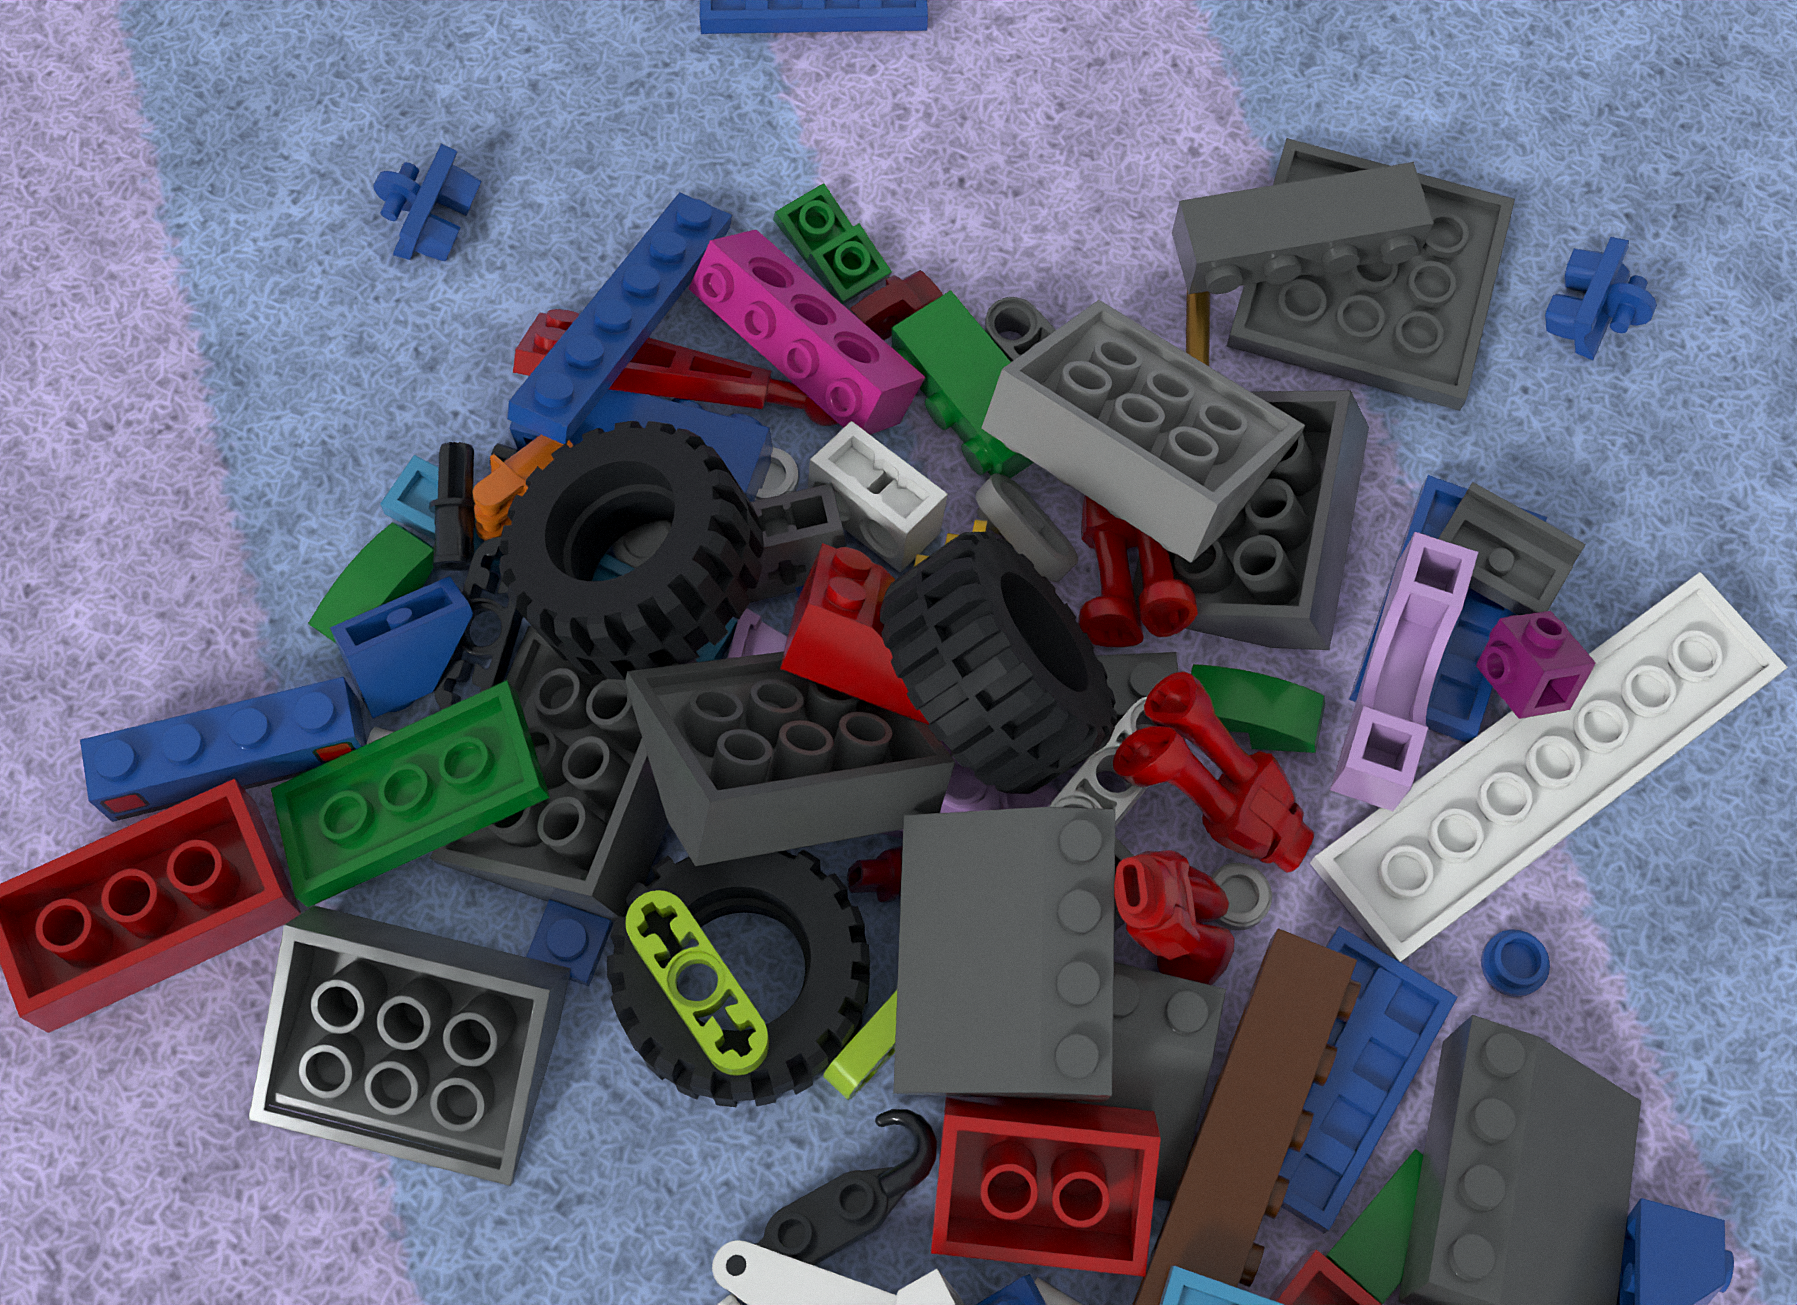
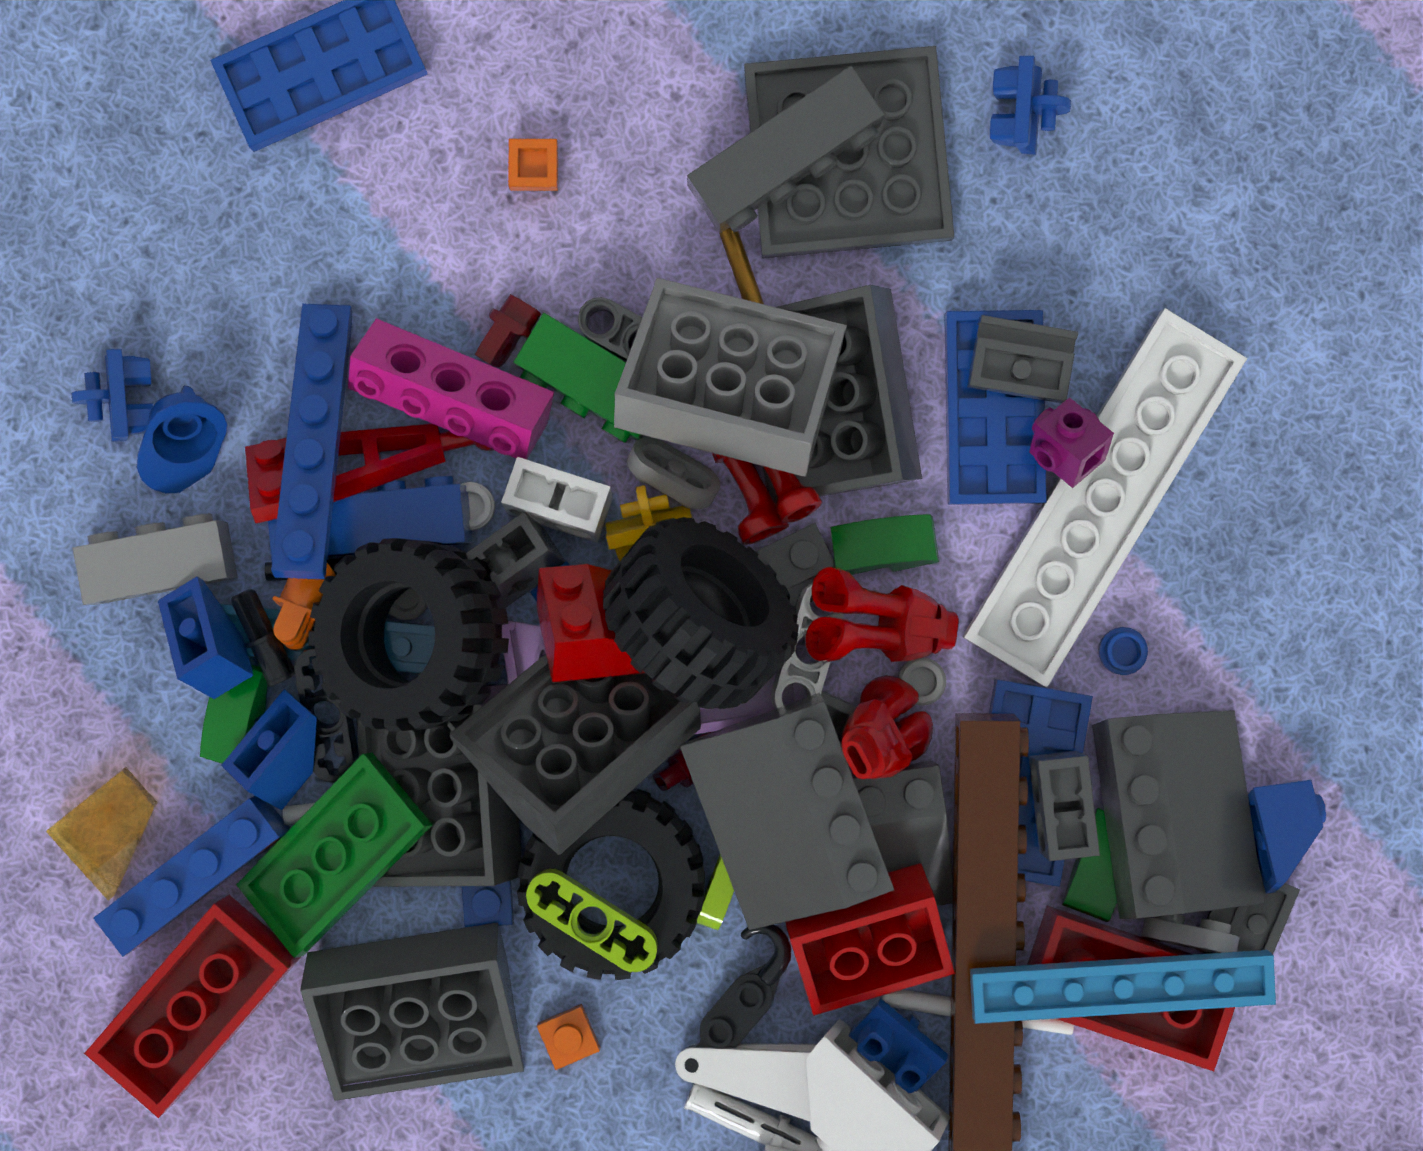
camera: 25 degrees left, 20 degrees up
(152, 659) = (106, 830): none -> clear yellow wing
(373, 386) = (154, 559): none -> light grey brick
(385, 480) = (203, 640): none -> blue slope
(470, 273) = (180, 441): none -> blue piece
(590, 1163) = (568, 1037): none -> orange plate
(830, 245) = (436, 297): green slope -> none
(1004, 153) = (533, 165): none -> orange plate
(1376, 1103) = (1064, 805): none -> dark grey brick
(1394, 695) = (978, 471): lavender arch -> none

